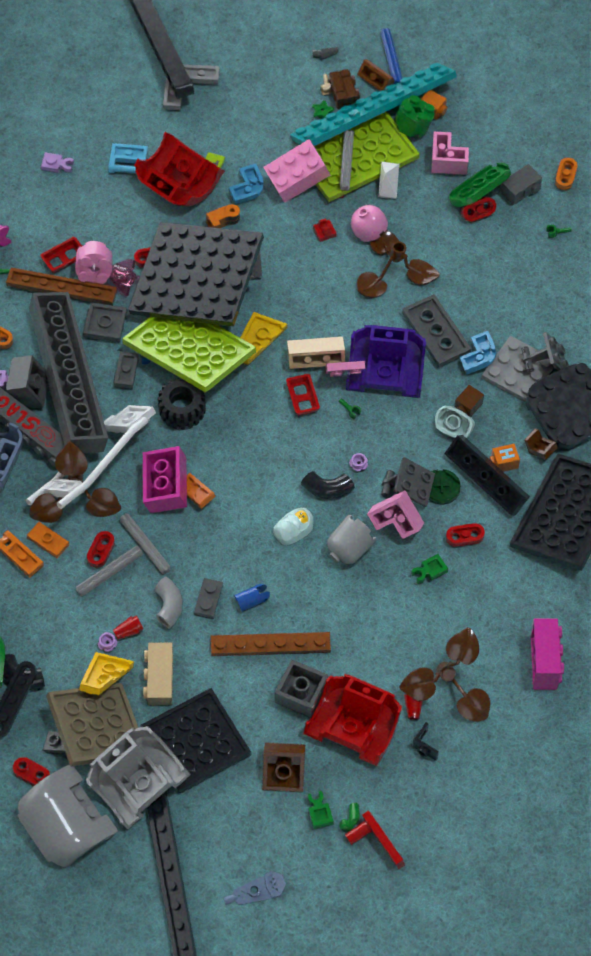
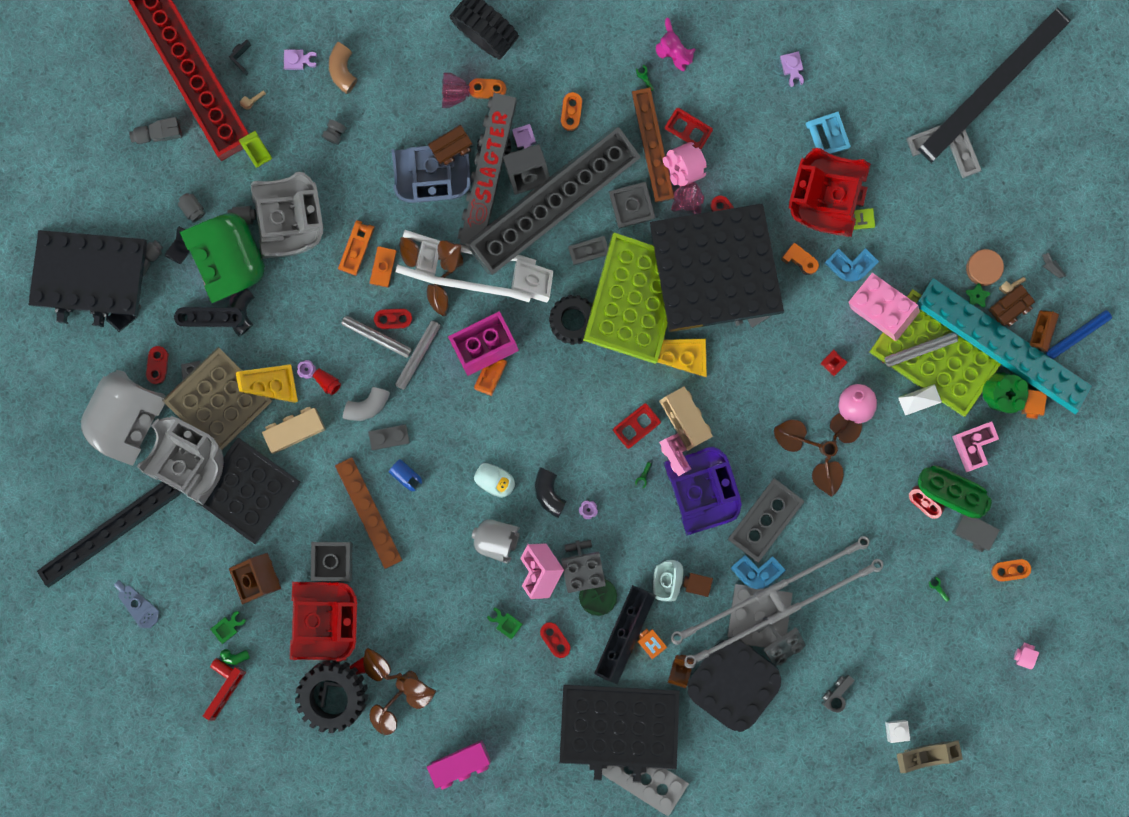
camera: 70 degrees right, 25 degrees up
(301, 95) = (985, 267): none -> nougat head
(413, 754) = (348, 680): none -> black tyre
(501, 345) = (783, 611): none -> light grey bar

